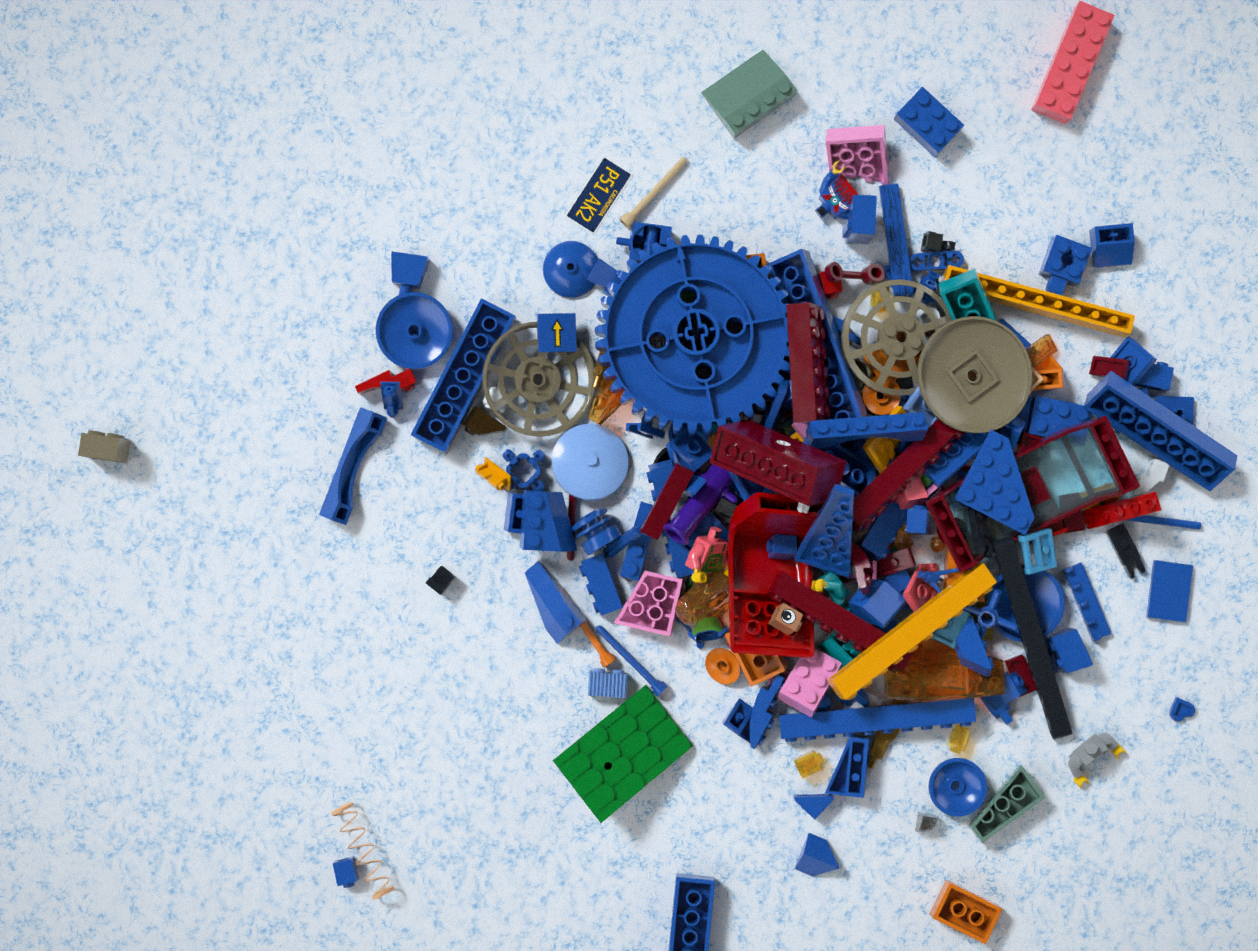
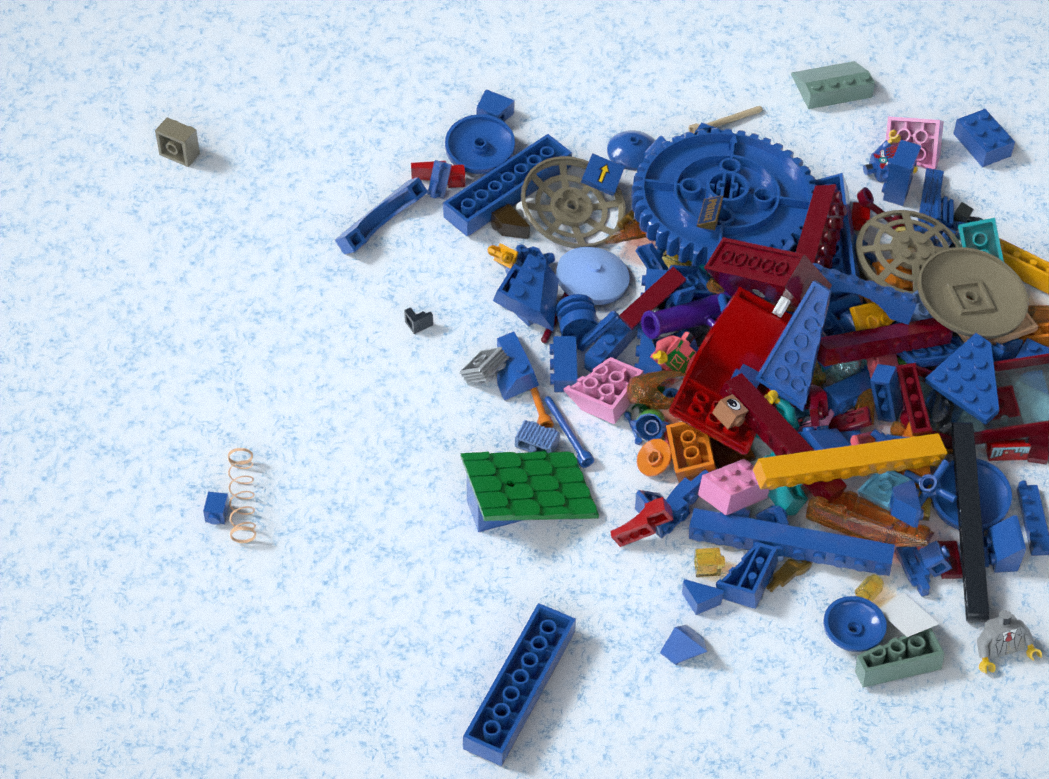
camera: 15 degrees right, 35 degrees down
(527, 622) = (484, 365): none -> light grey brick
(598, 195) = (677, 112): dark blue sticker -> none
(691, 379) = (710, 213): none -> slope
(743, 752) = (643, 524): none -> red slope
(916, 248) = (947, 210): none -> blue tile
(925, 822) = (813, 647): clear smoke brick -> none
(965, 911) = (828, 738): orange brick -> none
(999, 758) = (906, 614): none -> white sticker
(1043, 551) = (1000, 445): dark azure plate -> none

